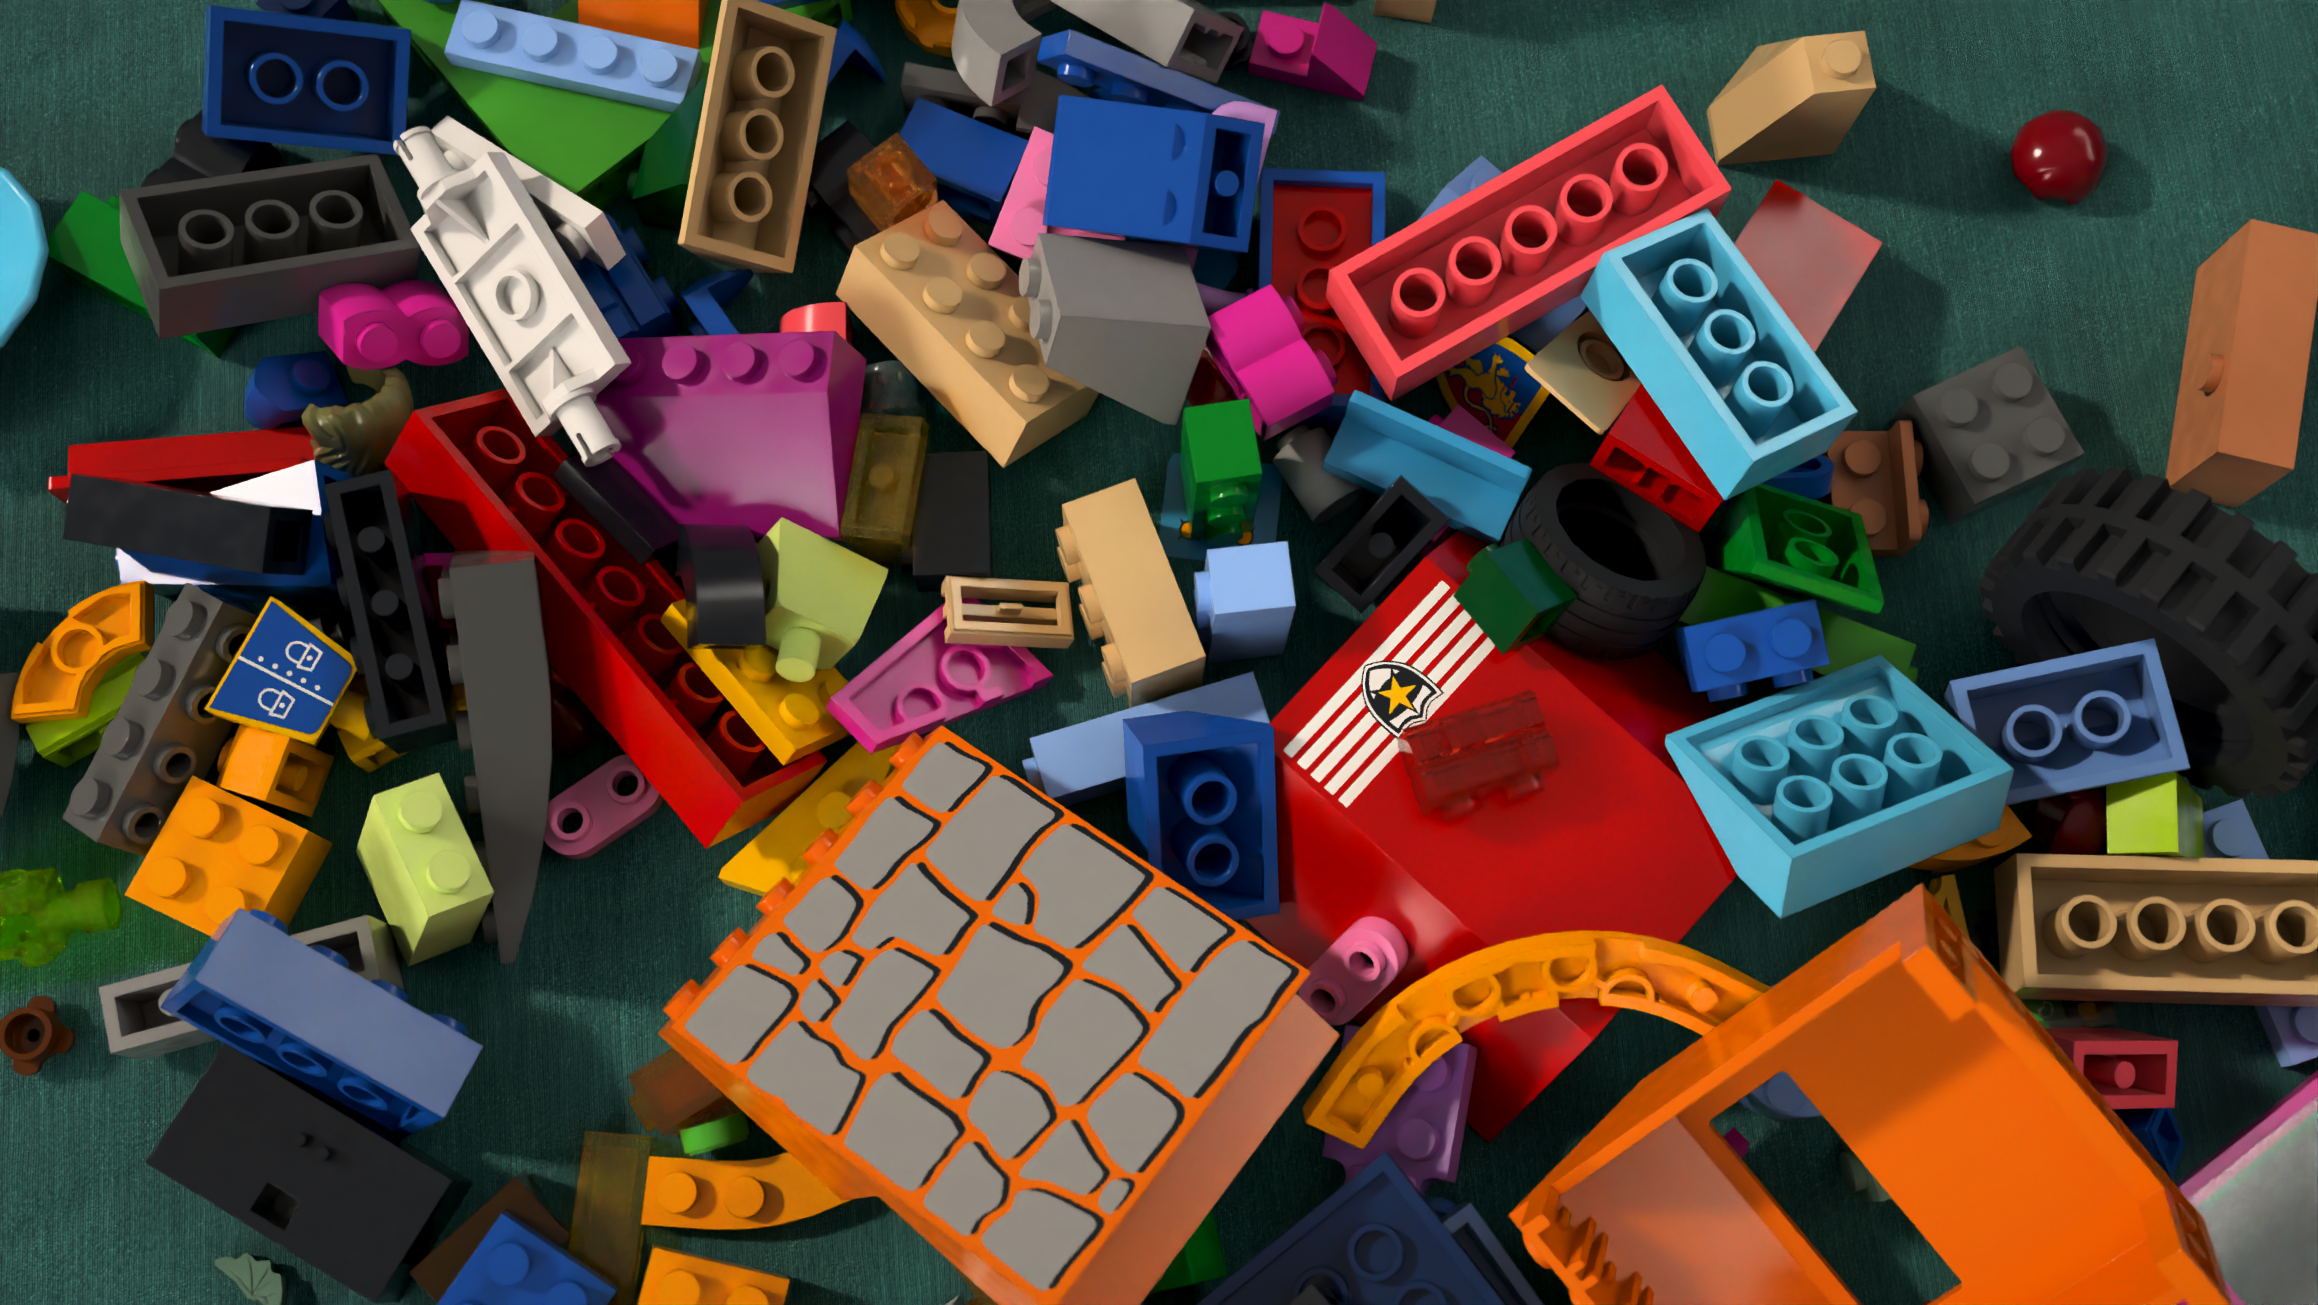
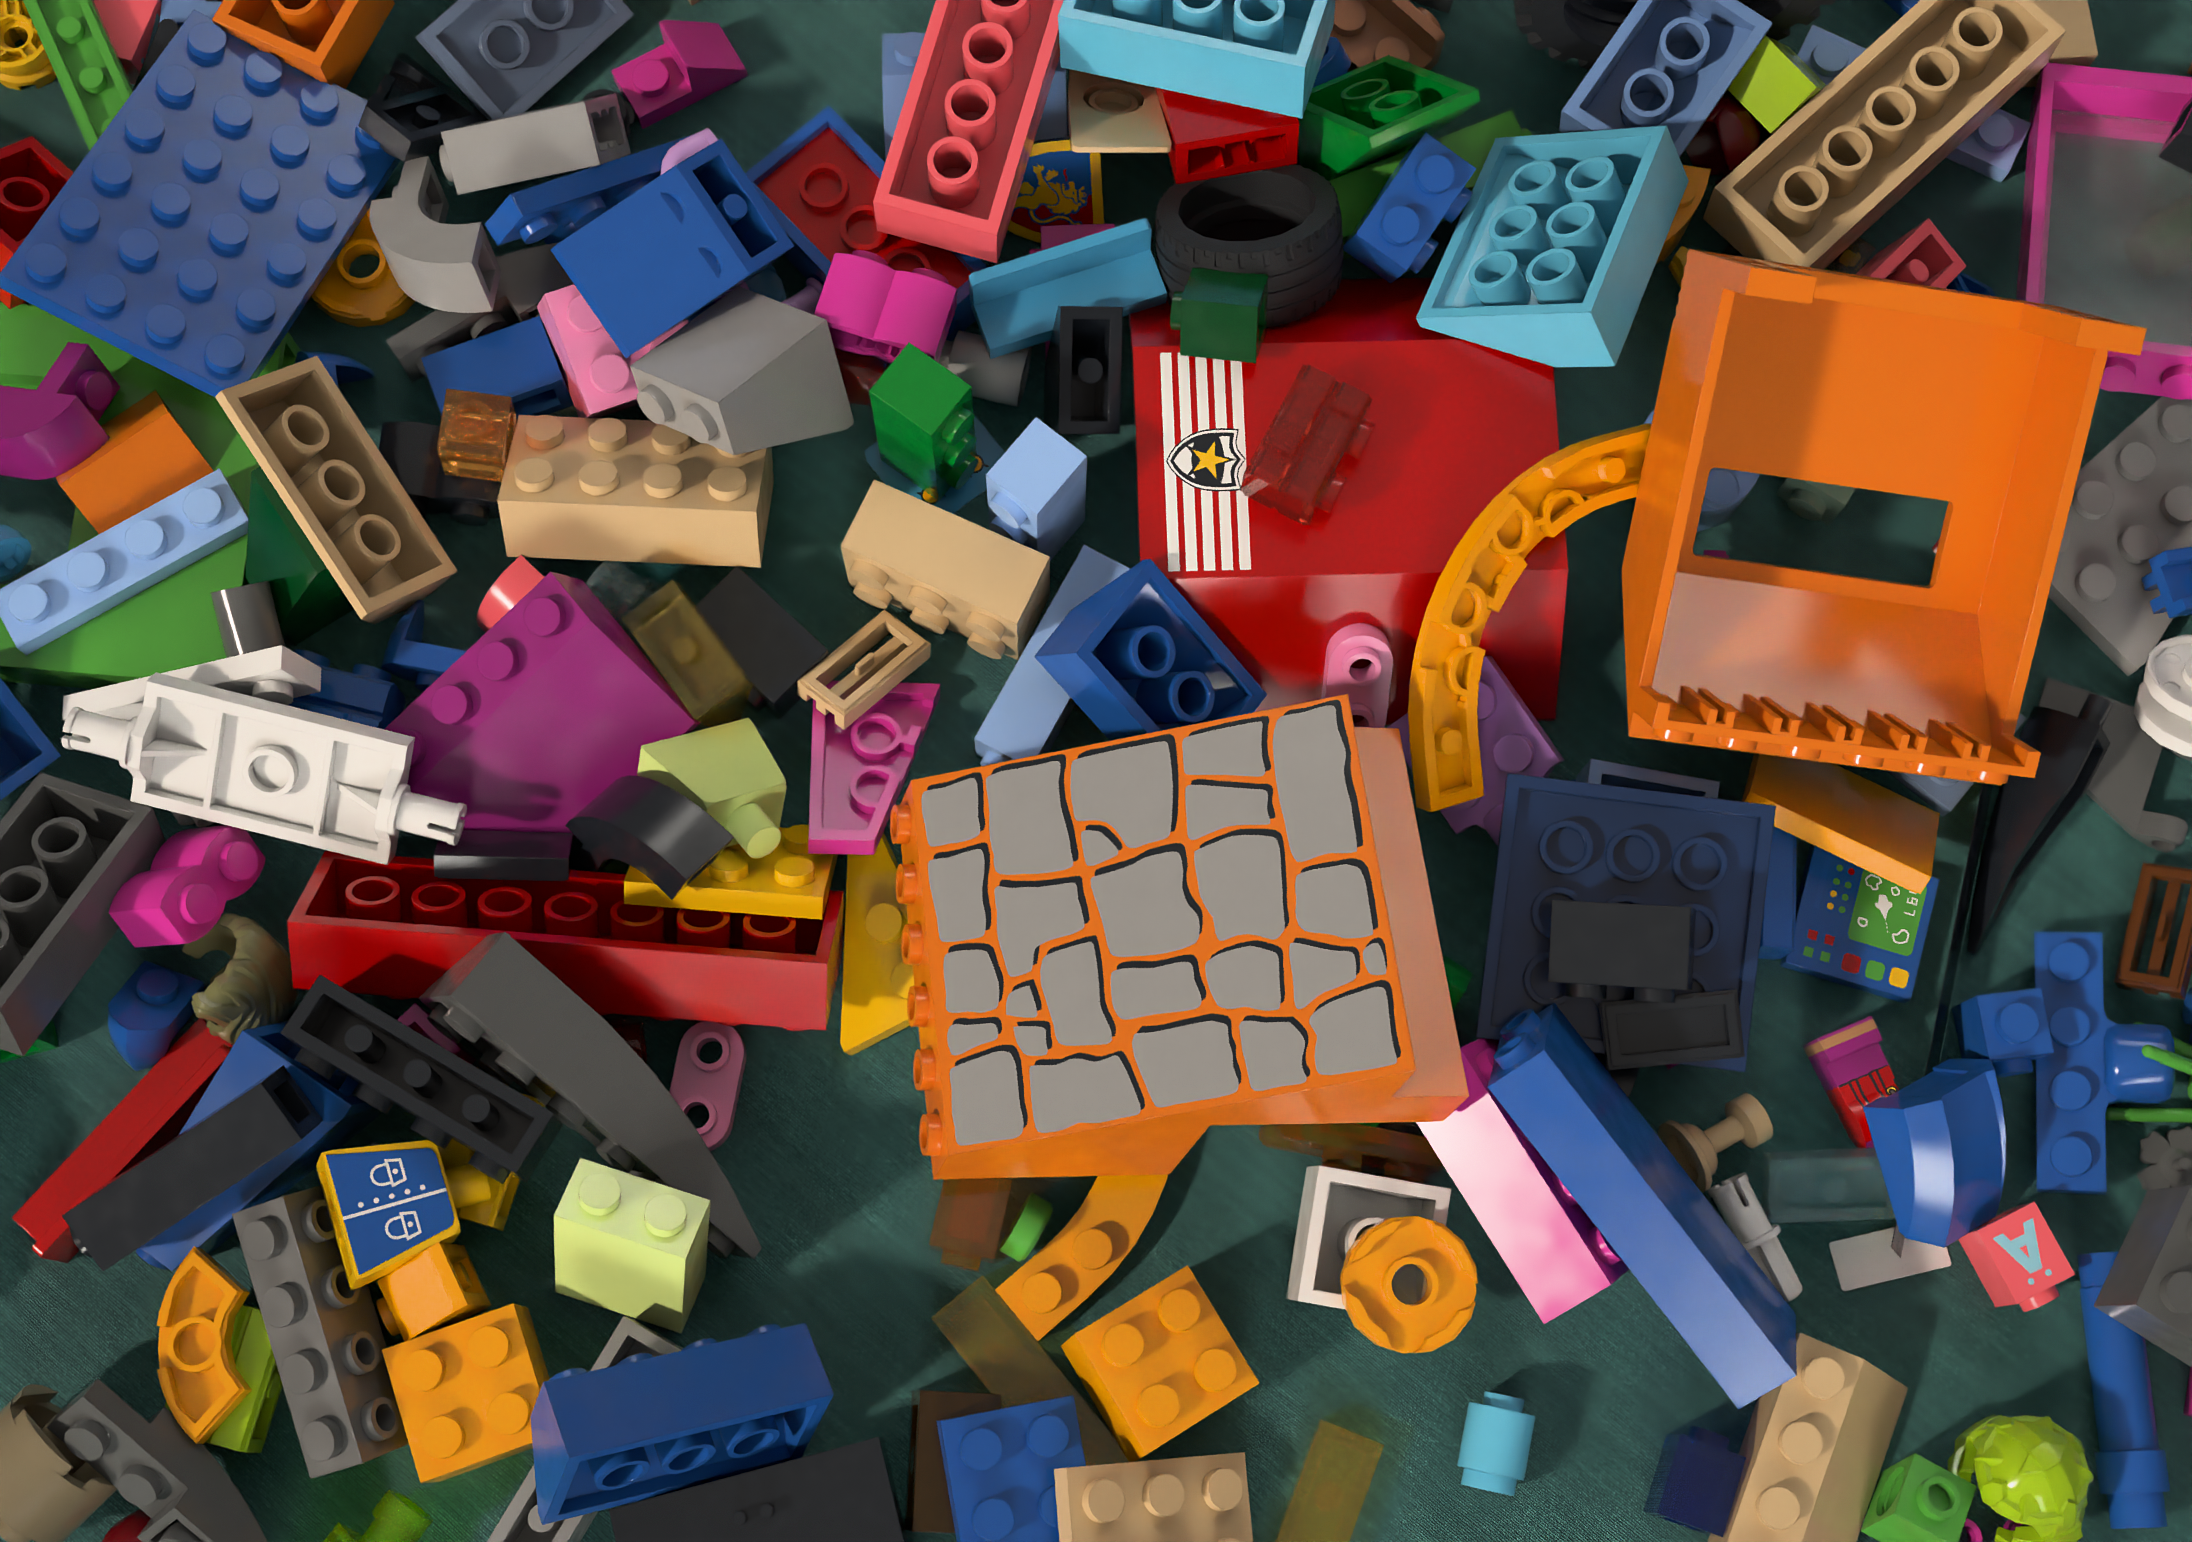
camera: 45 degrees left, 0 degrees up
(612, 175) = (247, 618): none -> dark grey piece

